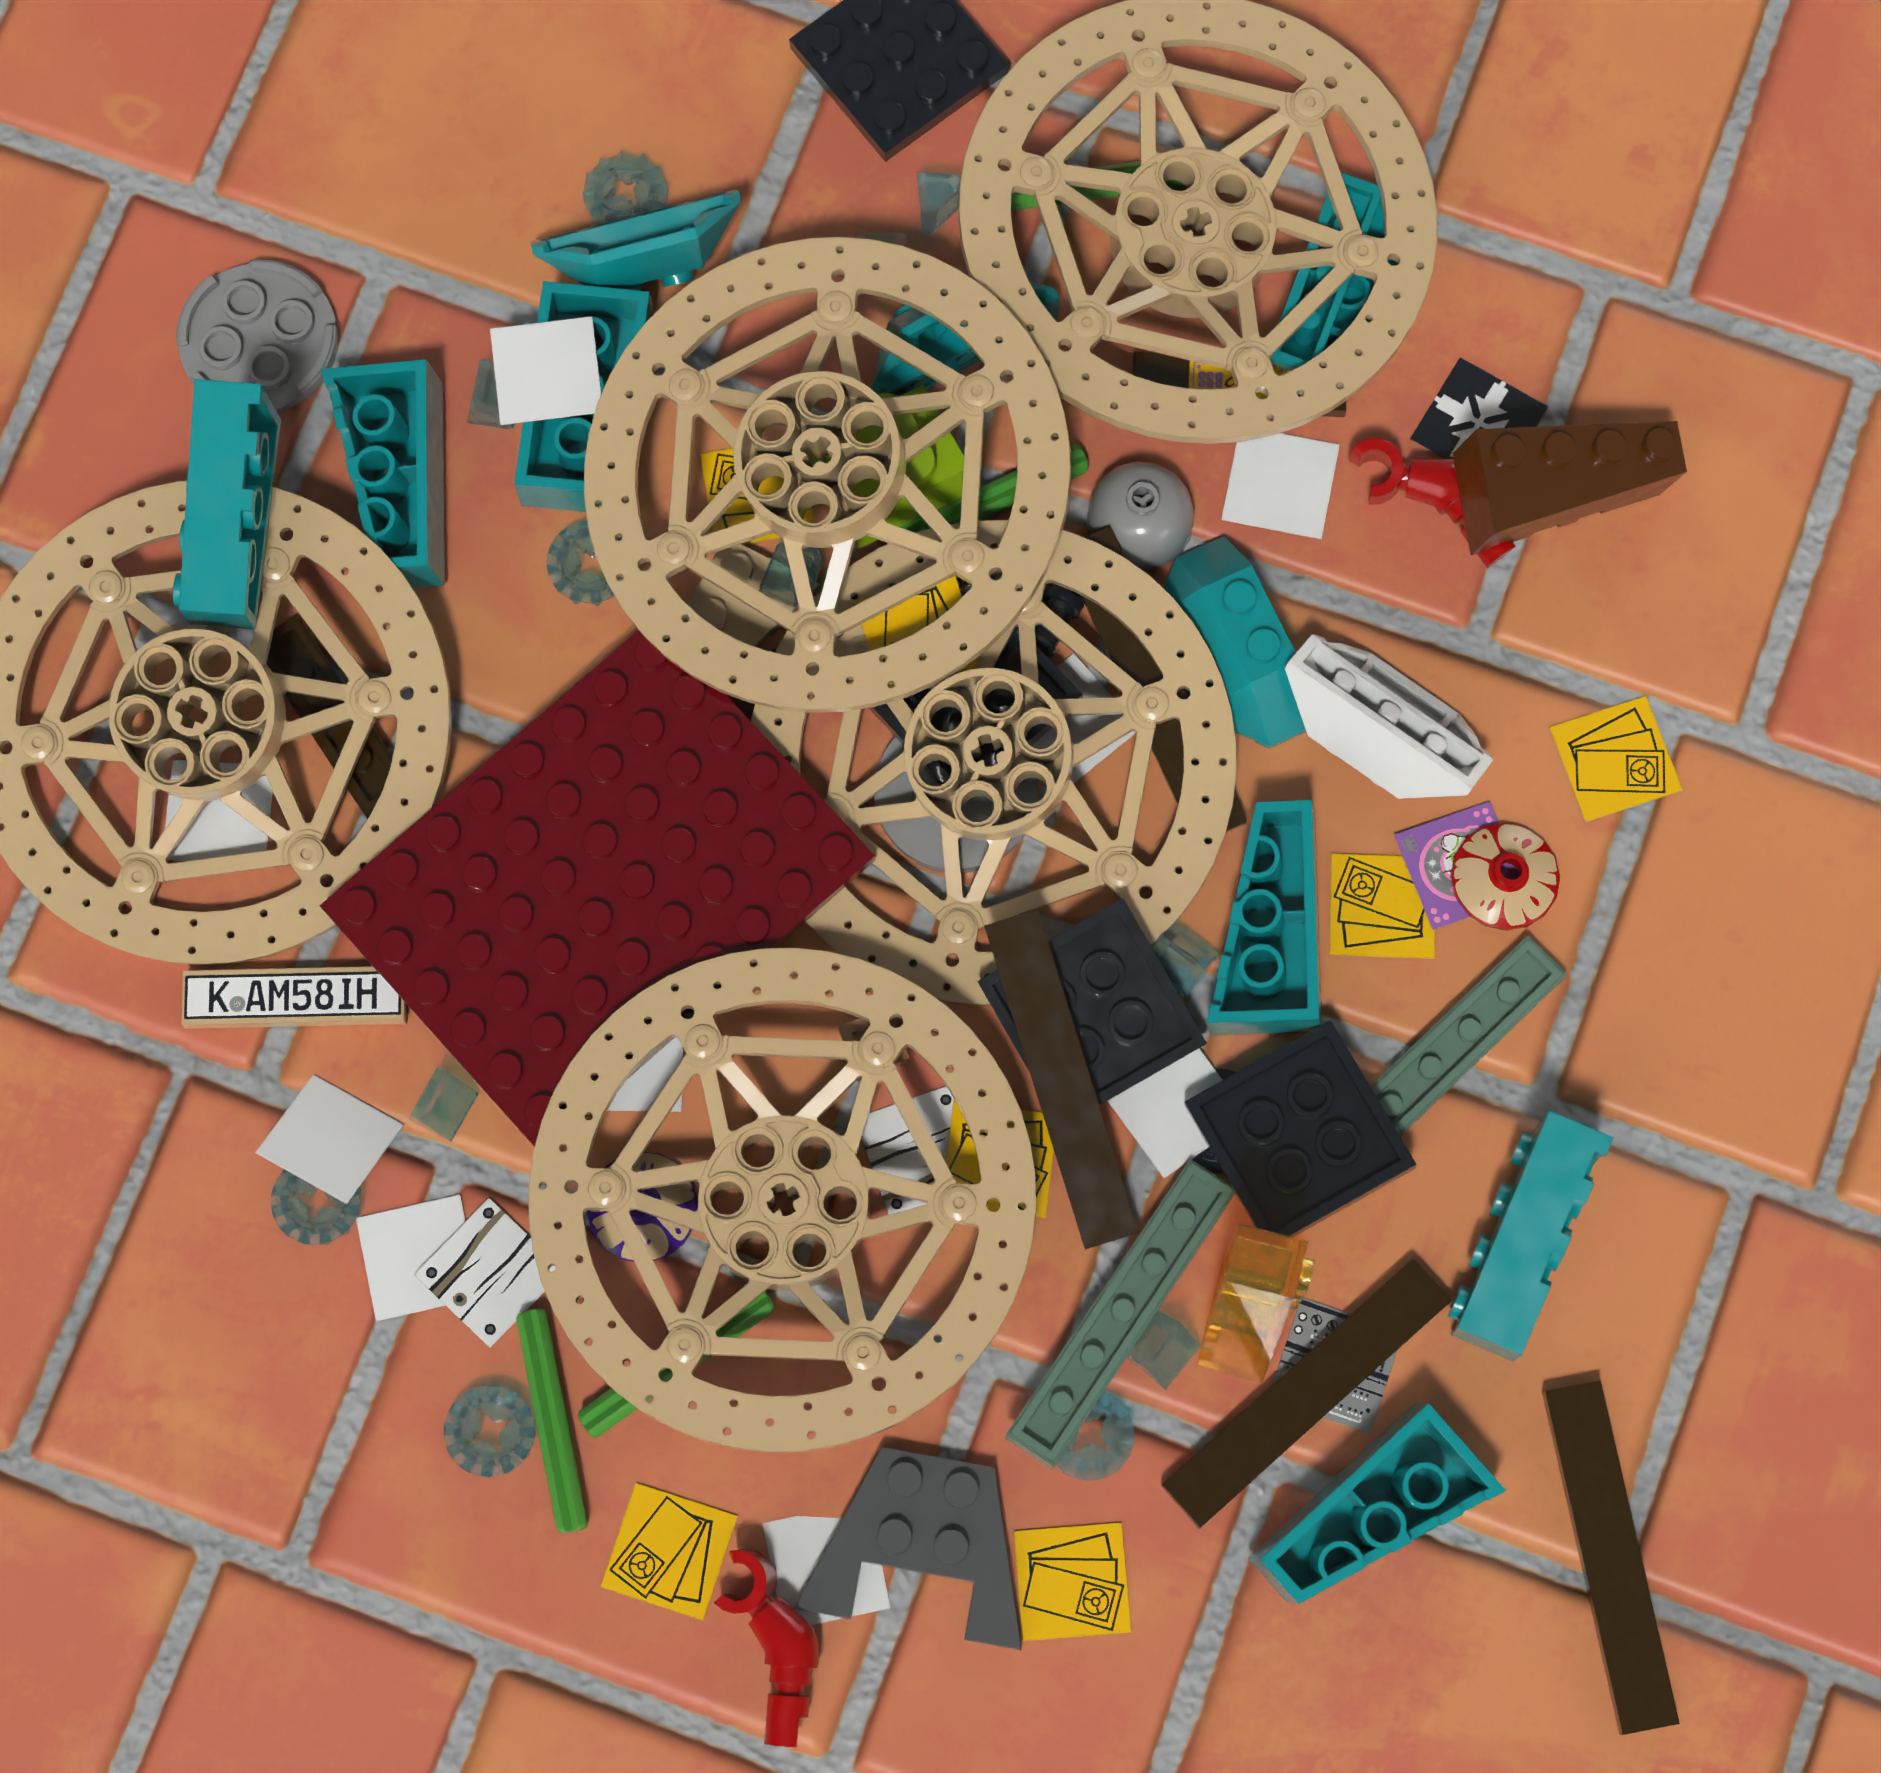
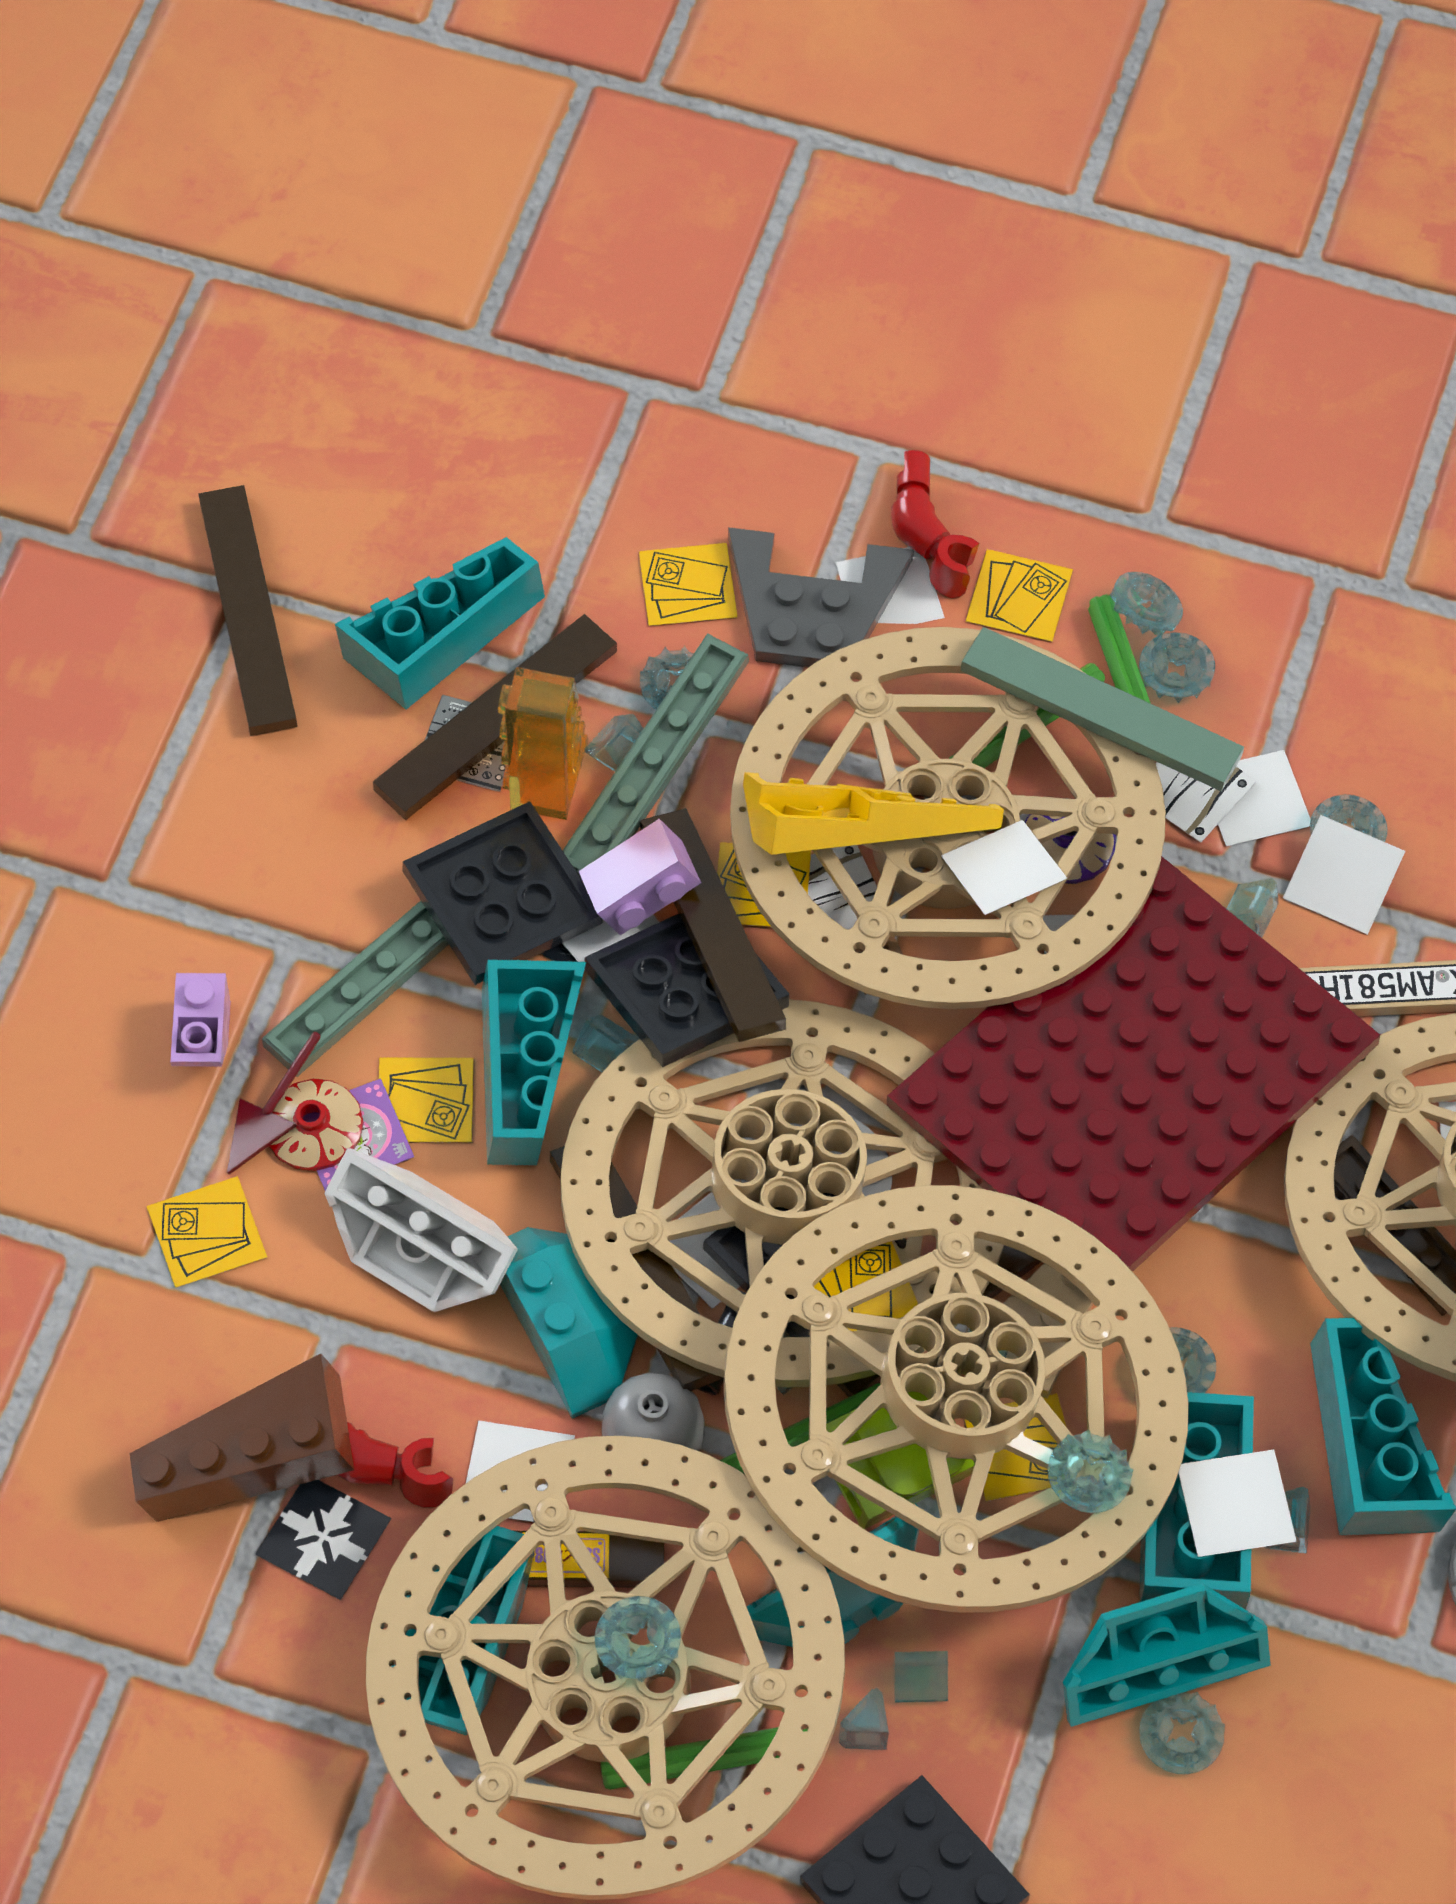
camera: 175 degrees right, 15 degrees down
(494, 1514) = (1139, 588): none -> clear light blue gear
(590, 1319) = (1102, 708): none -> sand green tile
(719, 375) = (1086, 1492): none -> clear light blue gear
(722, 1124) = (1004, 867): none -> white sticker
(932, 1176) = (823, 816): none -> yellow wedge
(1142, 1131) = (639, 877): none -> lavender brick
(1155, 213) = (629, 1617): none -> clear light blue gear
(1528, 1235) = (304, 825): teal wedge -> none
(1569, 872) = (258, 1126): none -> piece
(1638, 975) = (200, 1019): none -> lavender slope

